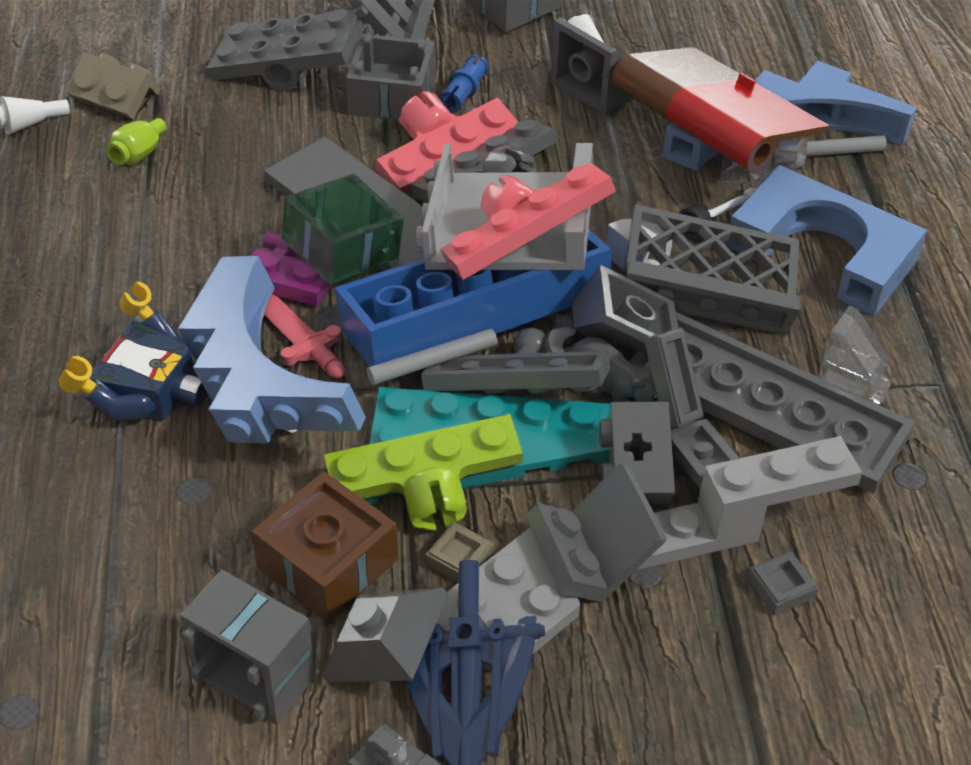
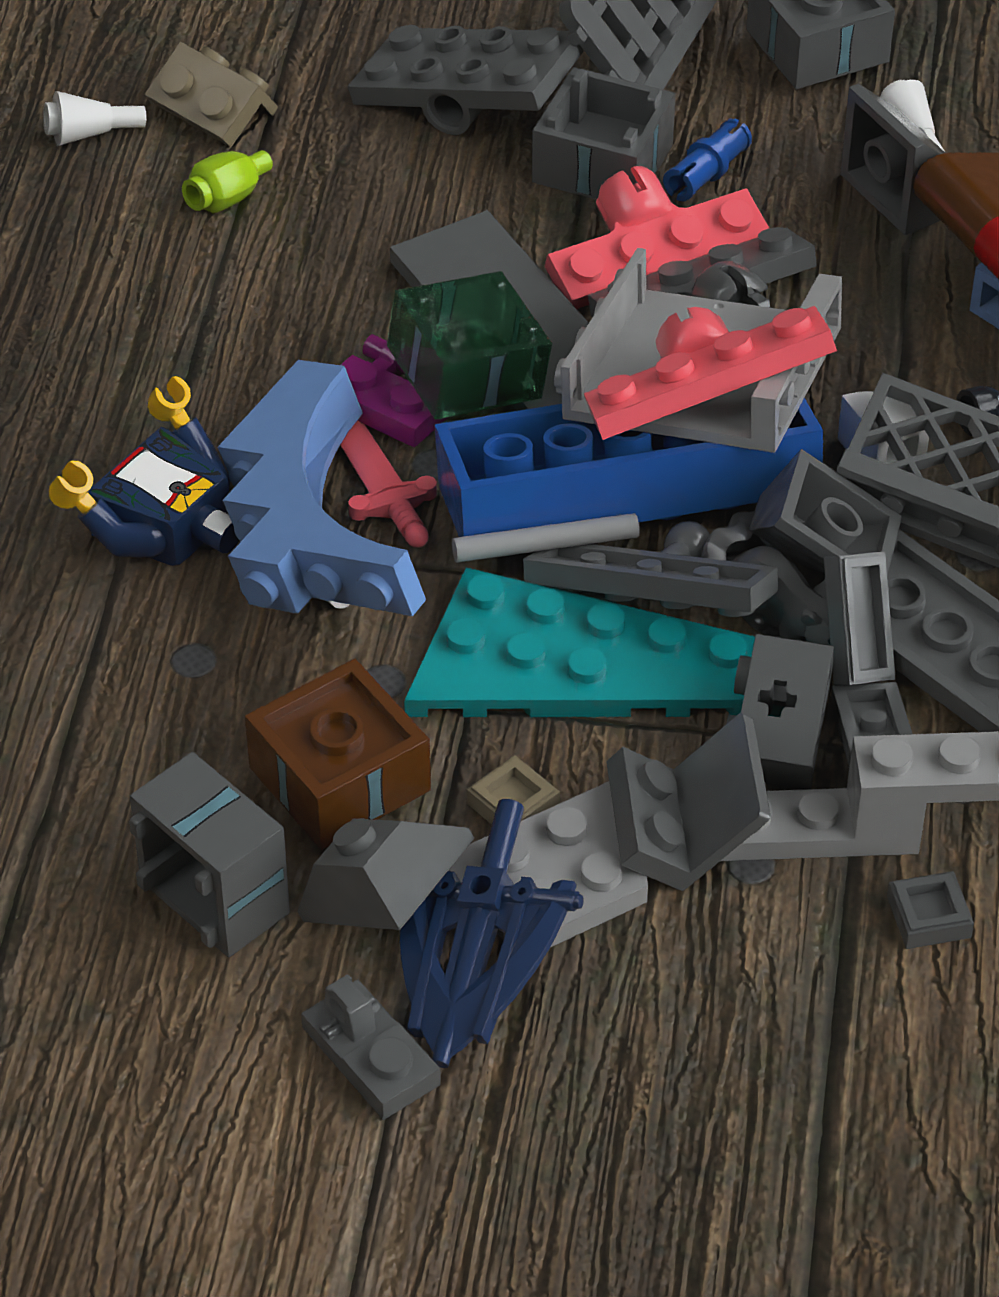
camera: 15 degrees right, 0 degrees up
(428, 466) = (498, 679): lime plate -> none

